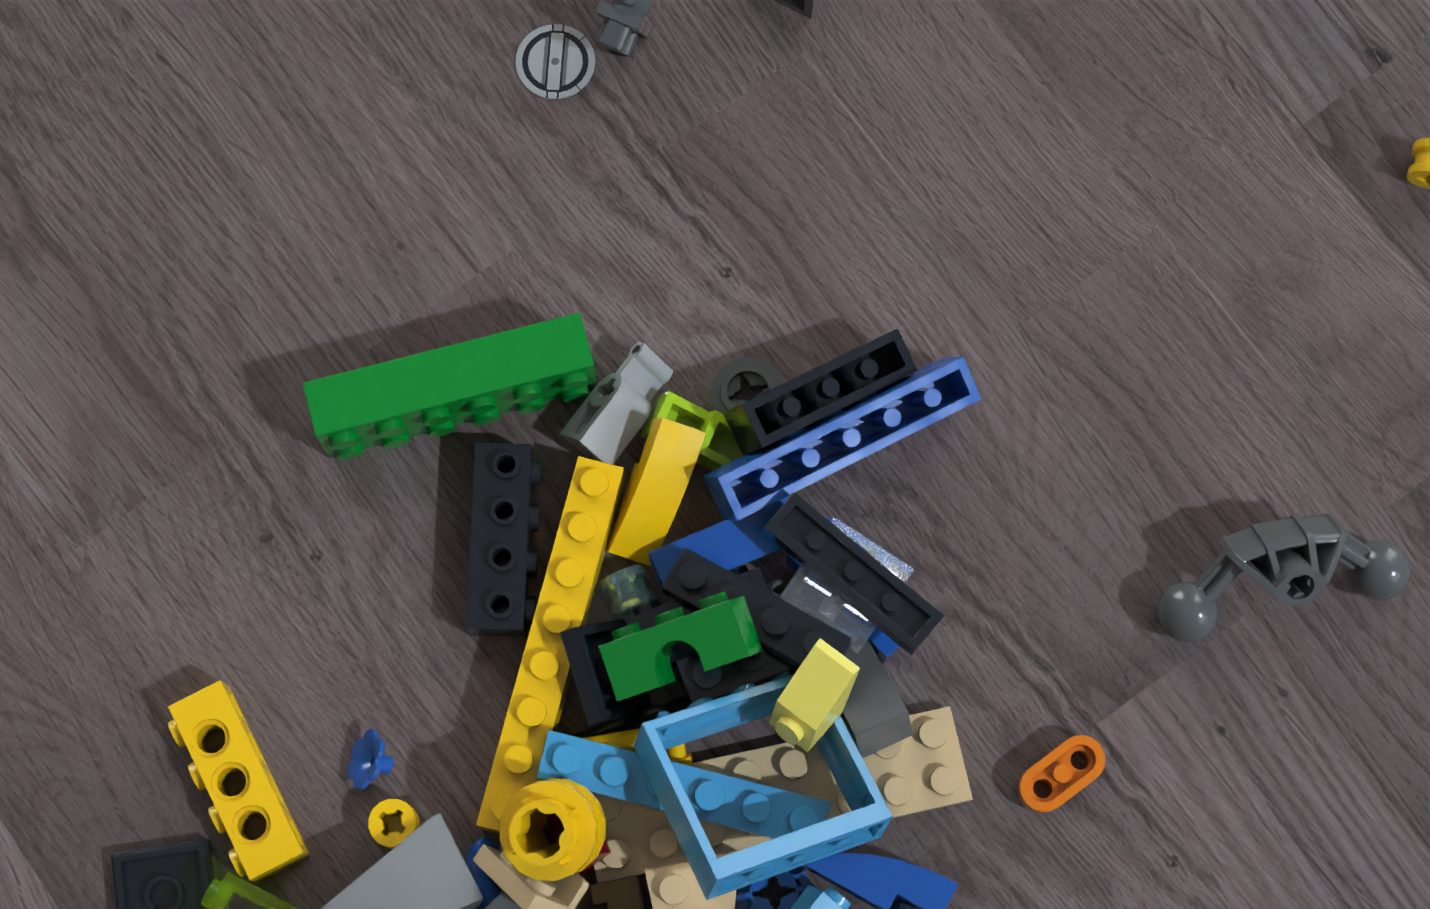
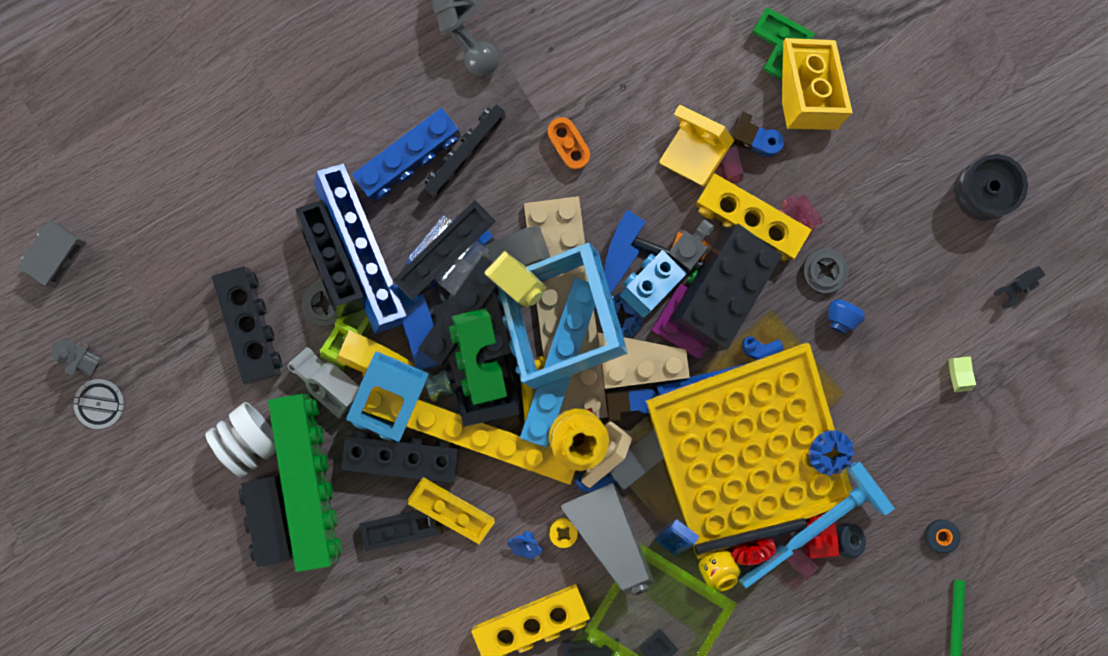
camera: 80 degrees left, 10 degrees up
(384, 331) = (266, 520): none -> black brick
(385, 549) = (397, 529): none -> black plate
(419, 629) = (451, 510): none -> yellow plate
(511, 281) = (238, 444): none -> white wheel
(632, 513) = (396, 378): none -> dark azure window
(758, 237) = (227, 287): none -> black brick
(1008, 502) = (407, 154): none -> blue brick
(1042, 607) = (470, 144): none -> black plate

